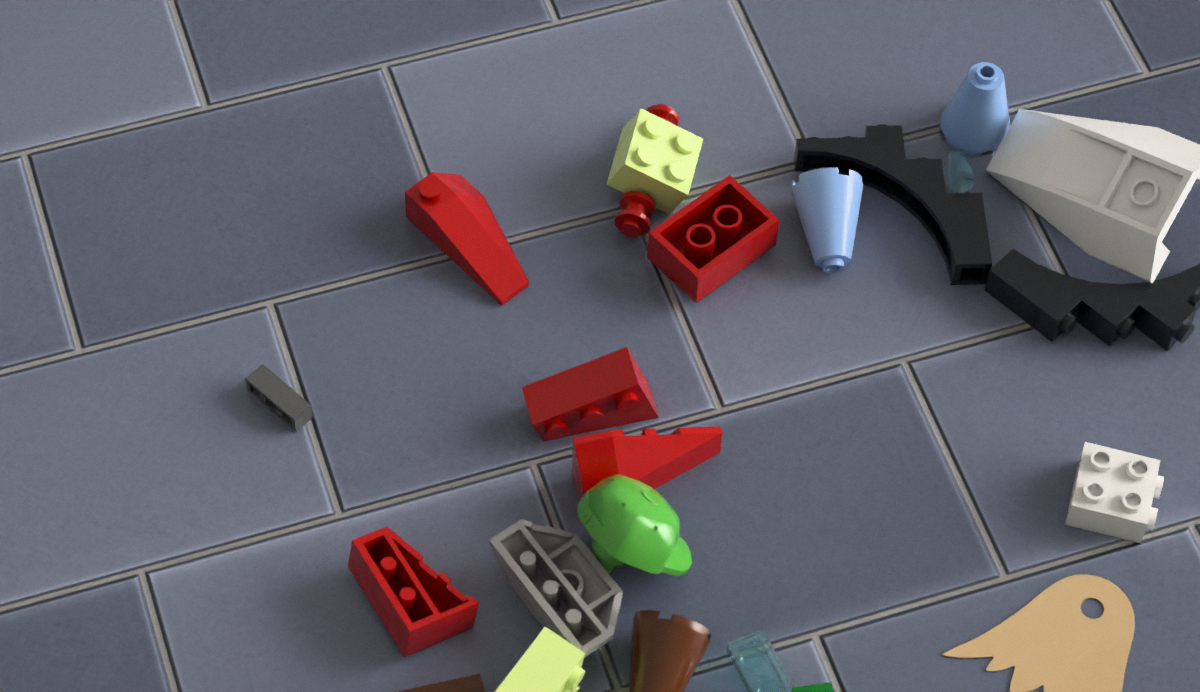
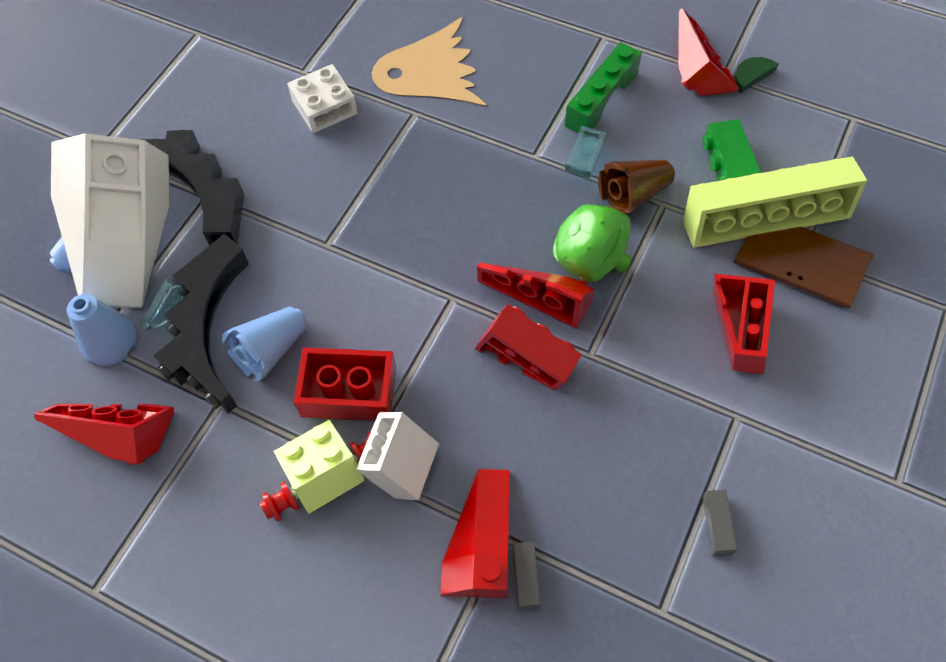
camera: 130 degrees left, 5 degrees up
(404, 235) = (526, 576): none -> dark grey piece
(560, 583) = (656, 249): light grey wedge -> none
(596, 212) = (398, 456): none -> white brick
(861, 70) = (110, 430): none -> red wedge

